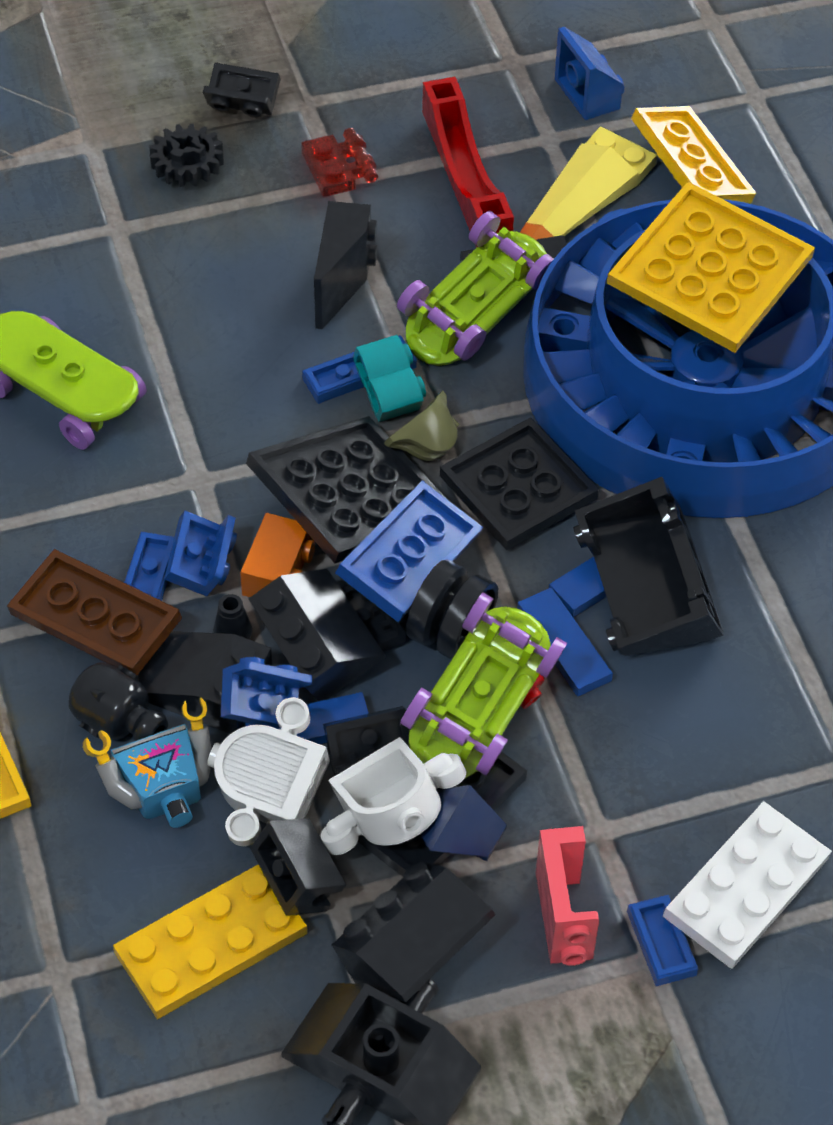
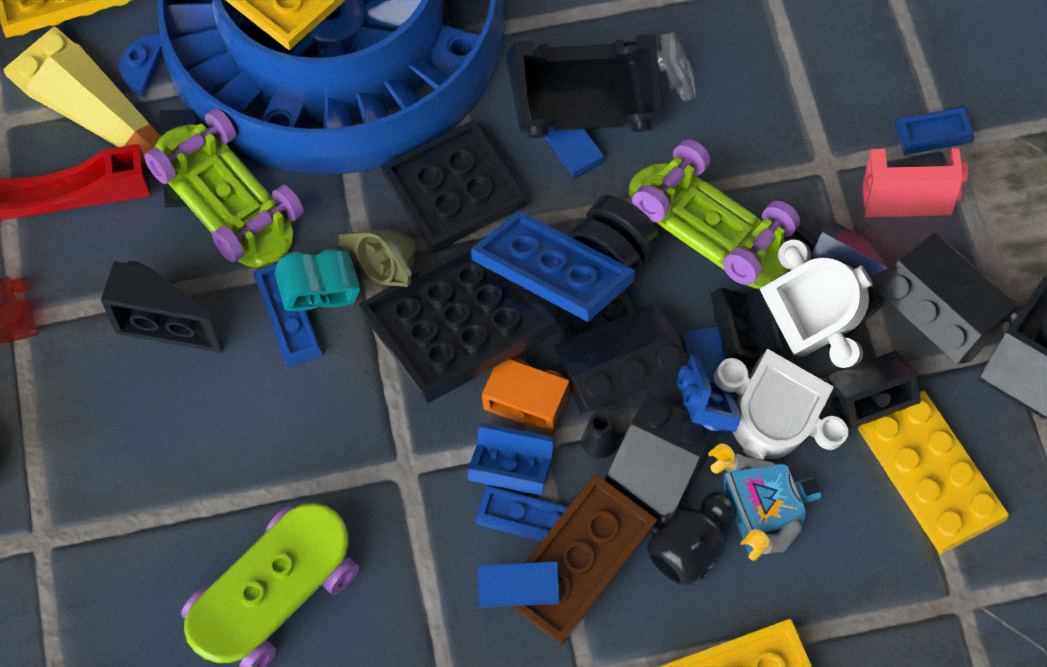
camera: 80 degrees left, 10 degrees up
(60, 558) = (518, 584): none -> blue tile
(579, 661) = (616, 173): blue tile -> none
(689, 658) = (678, 67): none -> clear plate
(747, 884) = (888, 62): white plate -> none

